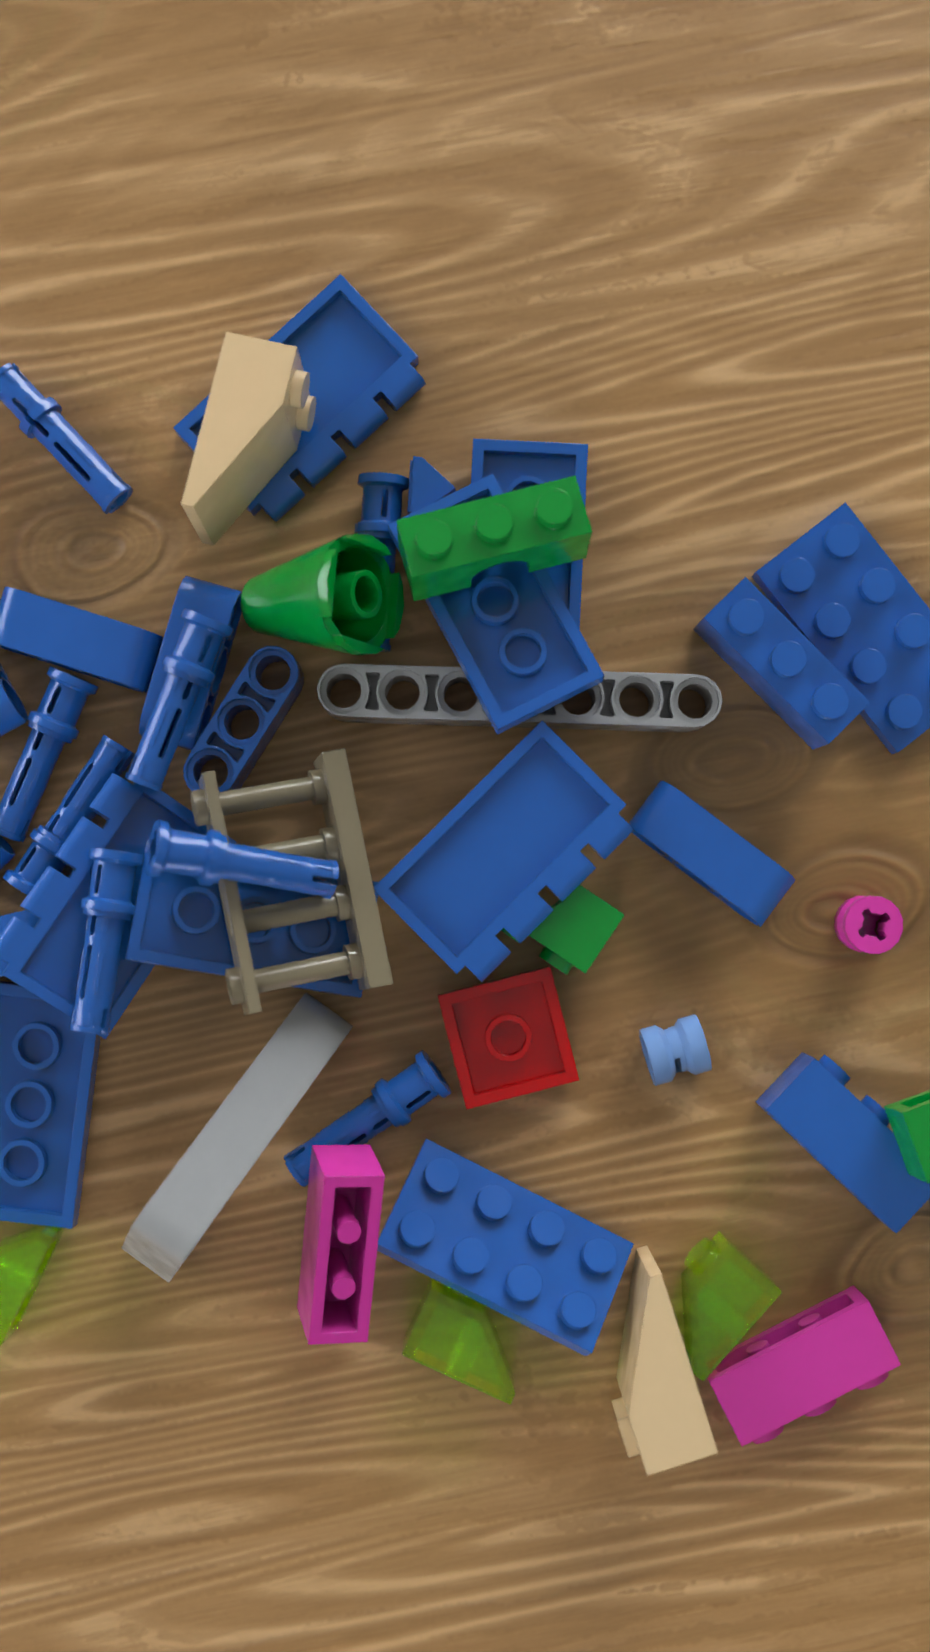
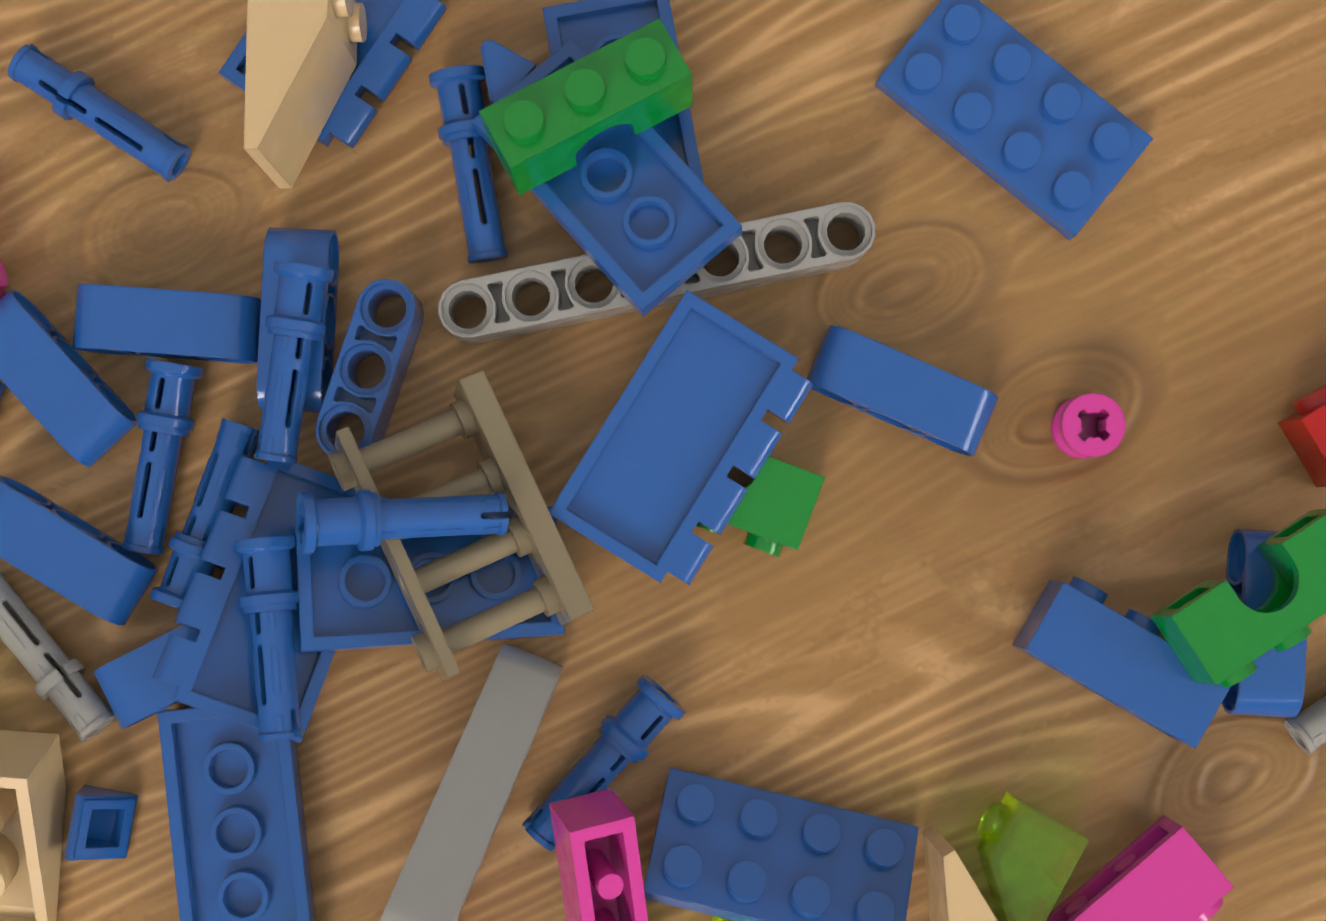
camera: 10 degrees left, 0 degrees up
(329, 597) = (428, 212): green cone -> none
(508, 1037) = (732, 638): red plate -> none
(675, 1049) = (913, 609): medium blue wheel -> none
(781, 665) = (928, 171): blue brick -> none

